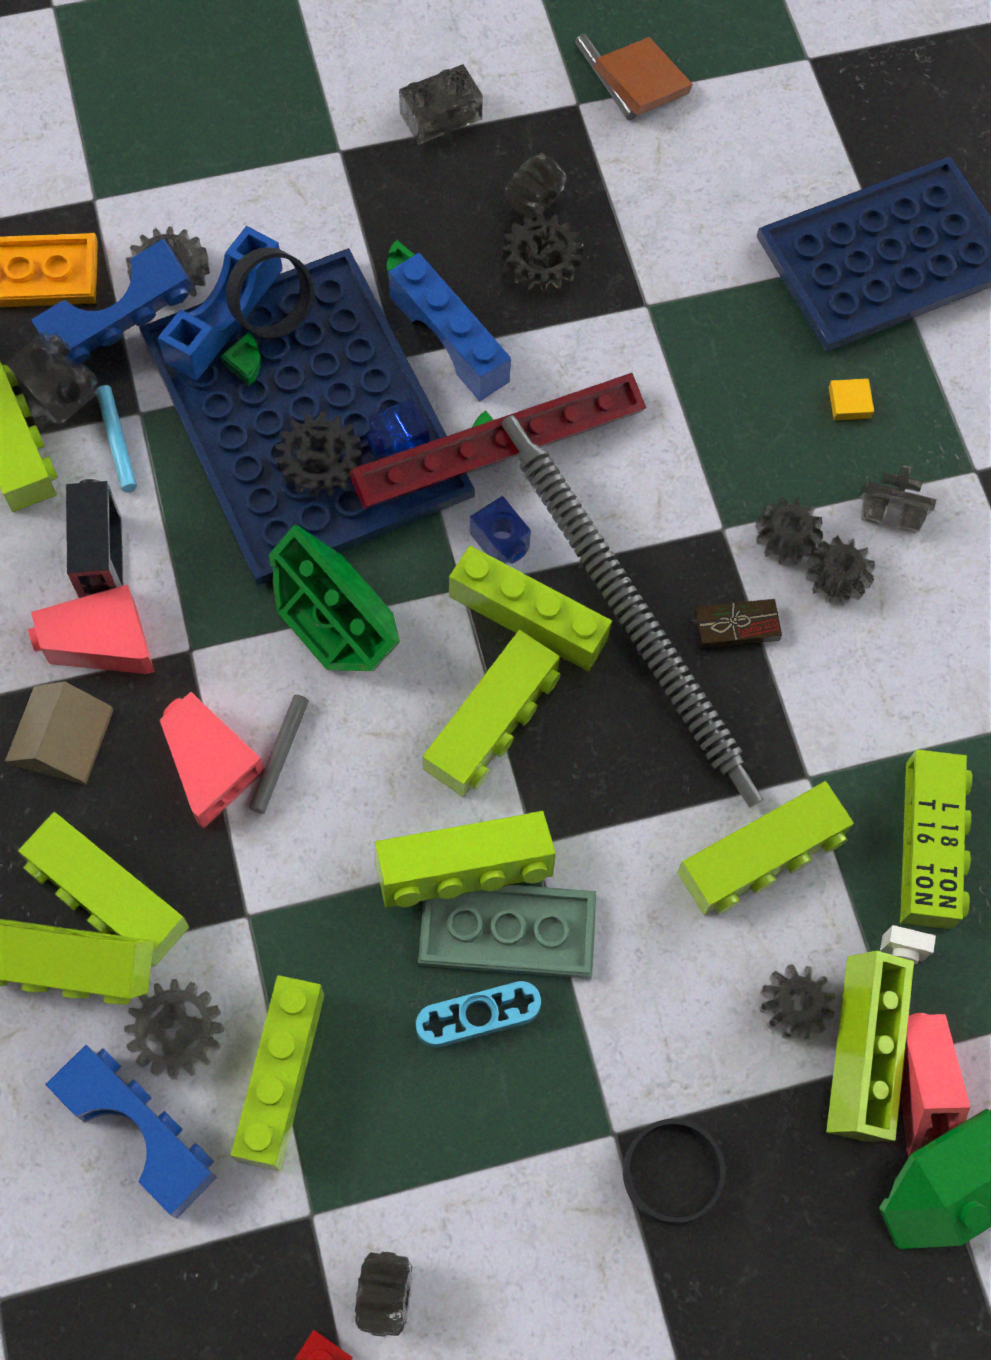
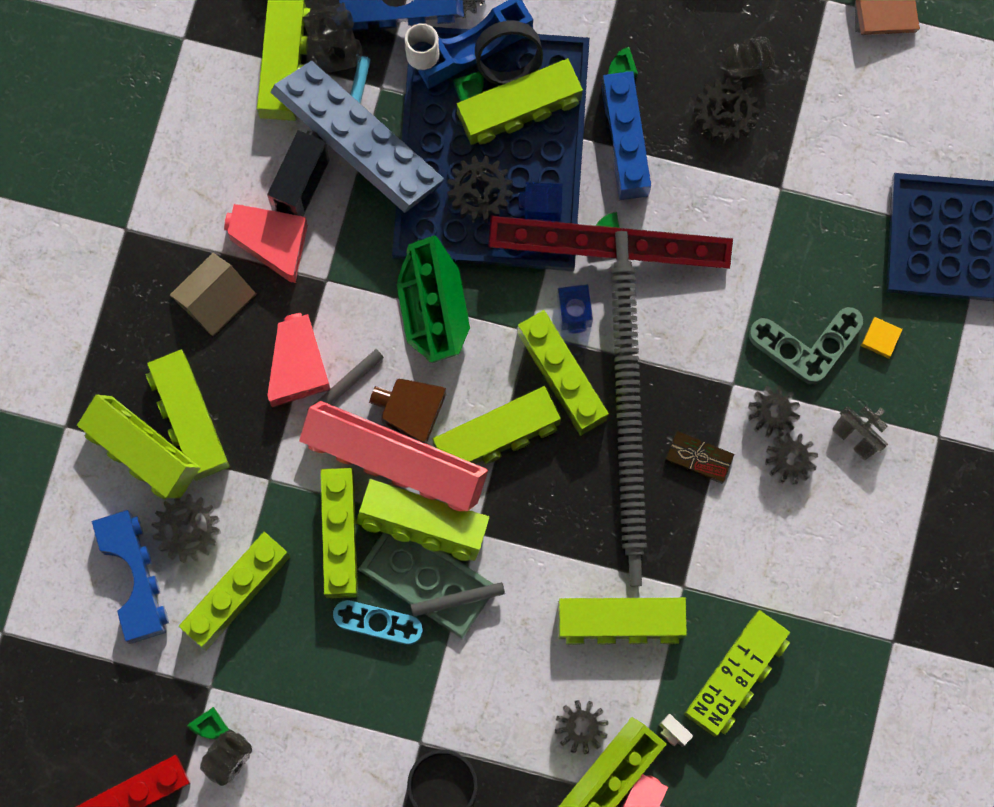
camera: 30 degrees right, 10 degrees up
(141, 462) = (357, 136): none -> sand blue plate
(166, 320) = (422, 33): none -> white piece
(310, 343) = (520, 102): none -> lime brick
(337, 1265) = (209, 725): none -> green tile
(371, 930) = (339, 533): none -> lime brick
(374, 739) = (410, 407): none -> reddish brown torso
(387, 800) = (393, 456): none -> coral brick
(560, 931) = (457, 599): none -> dark grey bar
(782, 457) = (804, 354): none -> sand green beam

